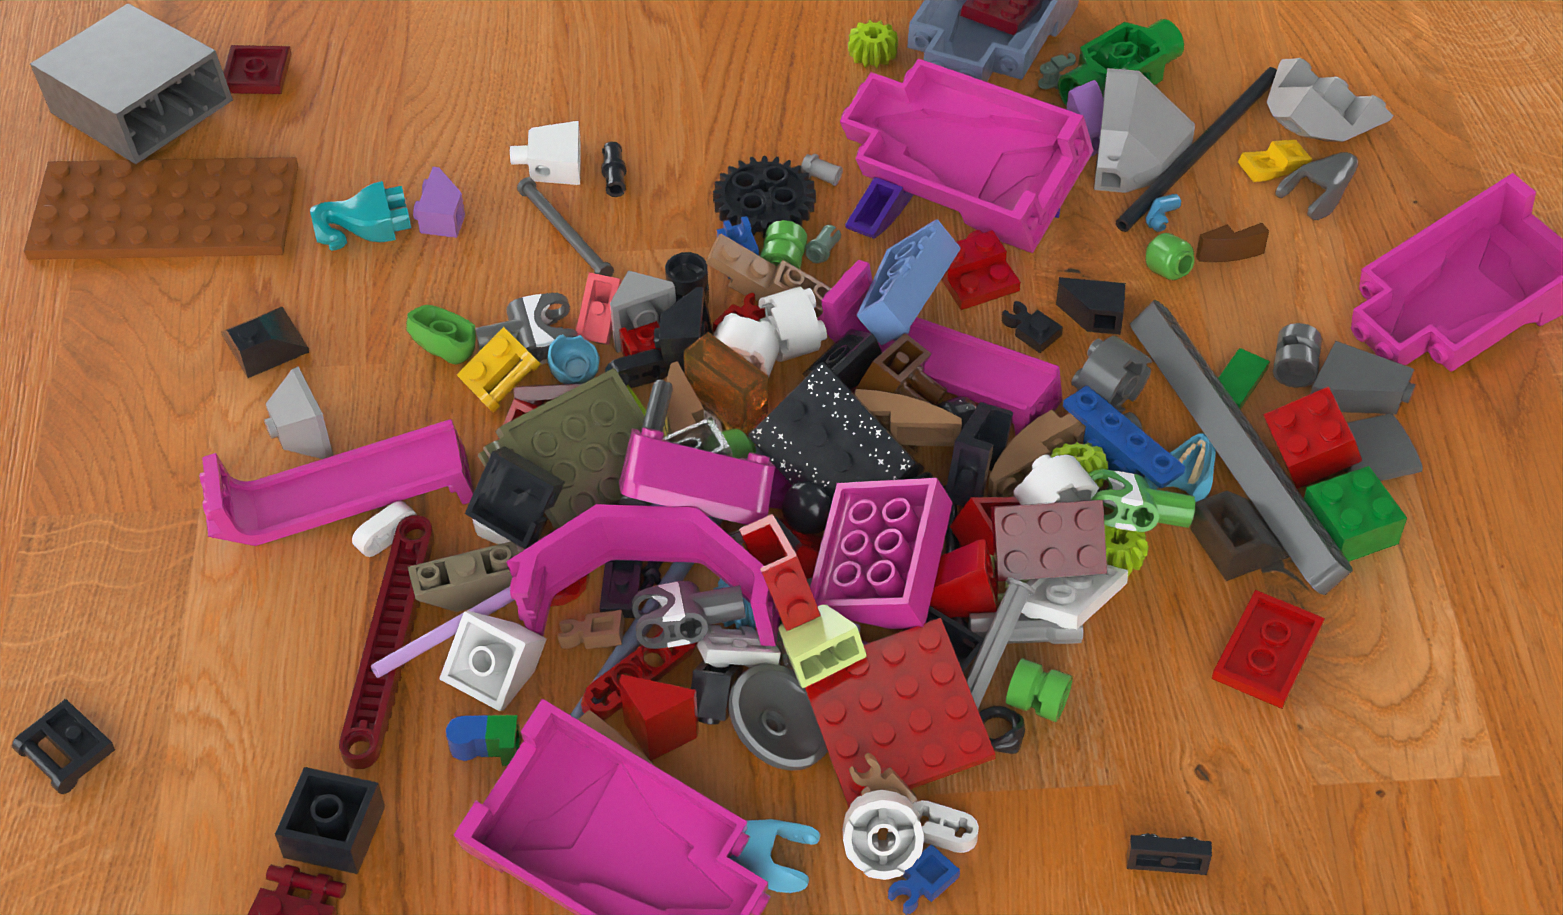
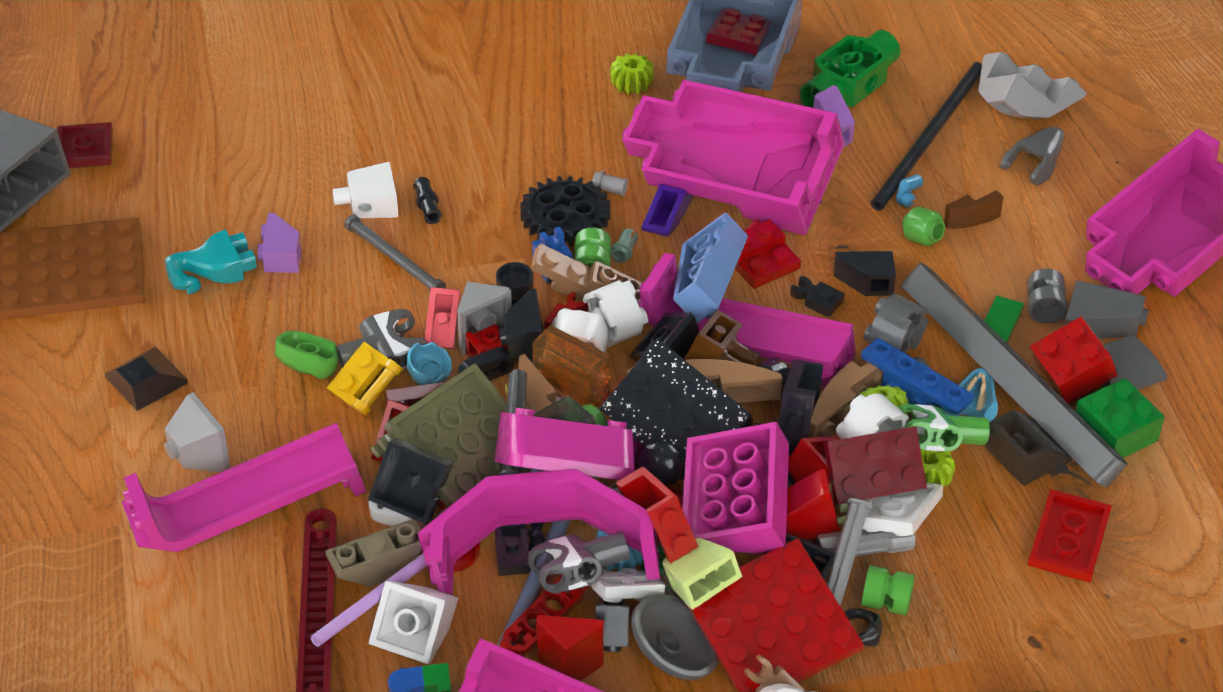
camera: 10 degrees left, 5 degrees down
(379, 530) = (290, 524): white beam -> none
(597, 630) = (499, 587): medium nougat plate -> none
(1056, 65) = (795, 76): sand green piece -> none
(1138, 133) = (878, 126): light grey brick -> none
(1279, 160) = (998, 138): yellow slope -> none

